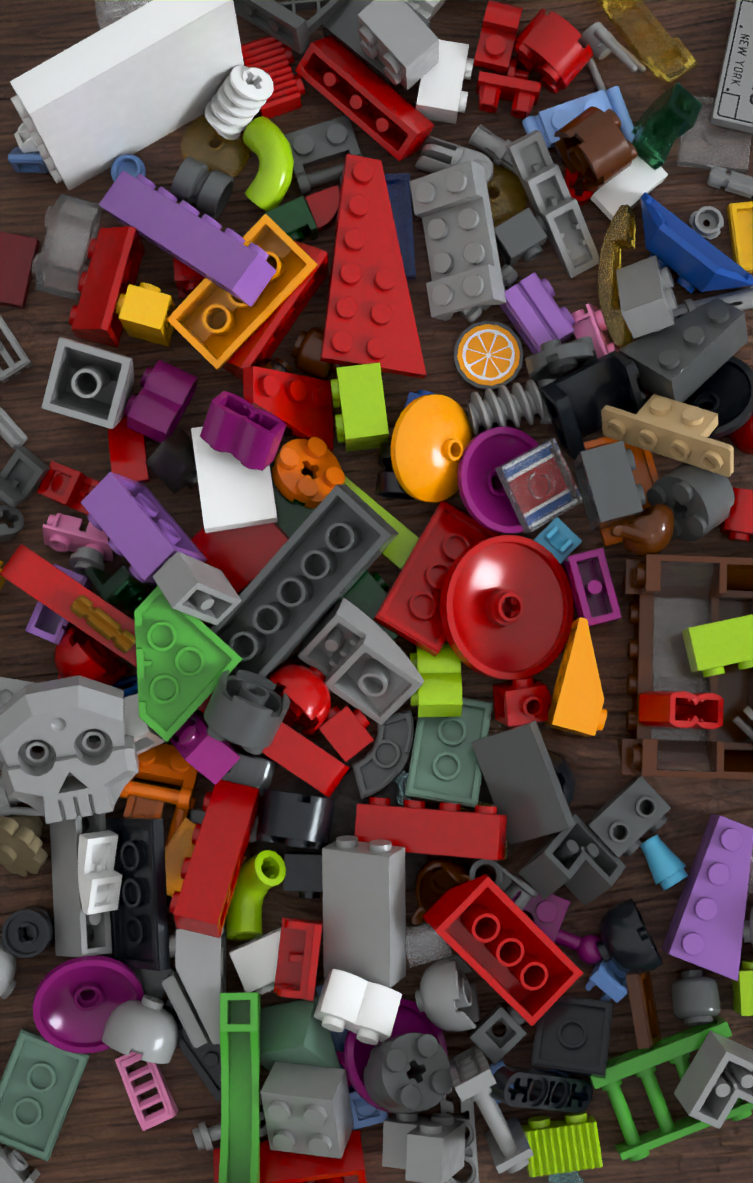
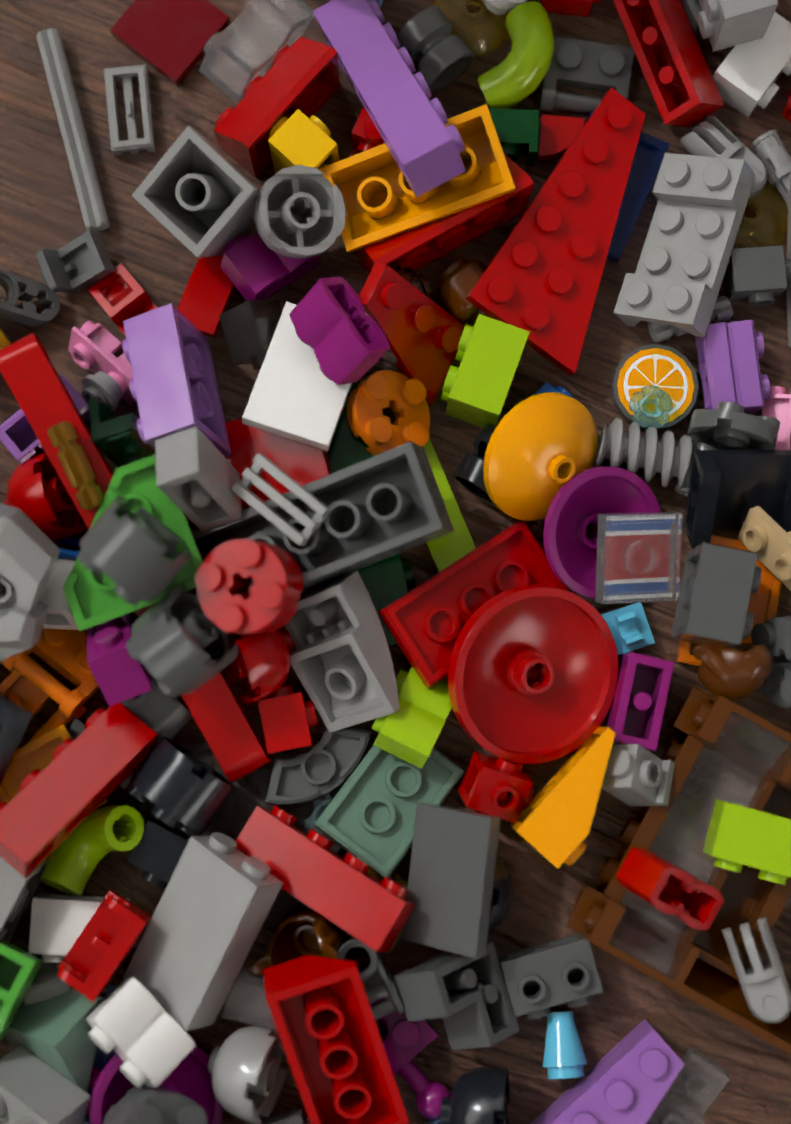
camera: 30 degrees right, 0 degrees up
(169, 359) = (299, 212): none -> light grey cylinder
(179, 663) = (132, 552): none -> dark grey brick
(233, 567) = (251, 476): none -> light grey tile
(253, 652) = (225, 579): none -> red brick
(271, 1009) = (46, 984): none -> light grey tile
(493, 362) = (655, 396): none -> clear light blue plate
(618, 642) = (638, 776): none -> light grey brick

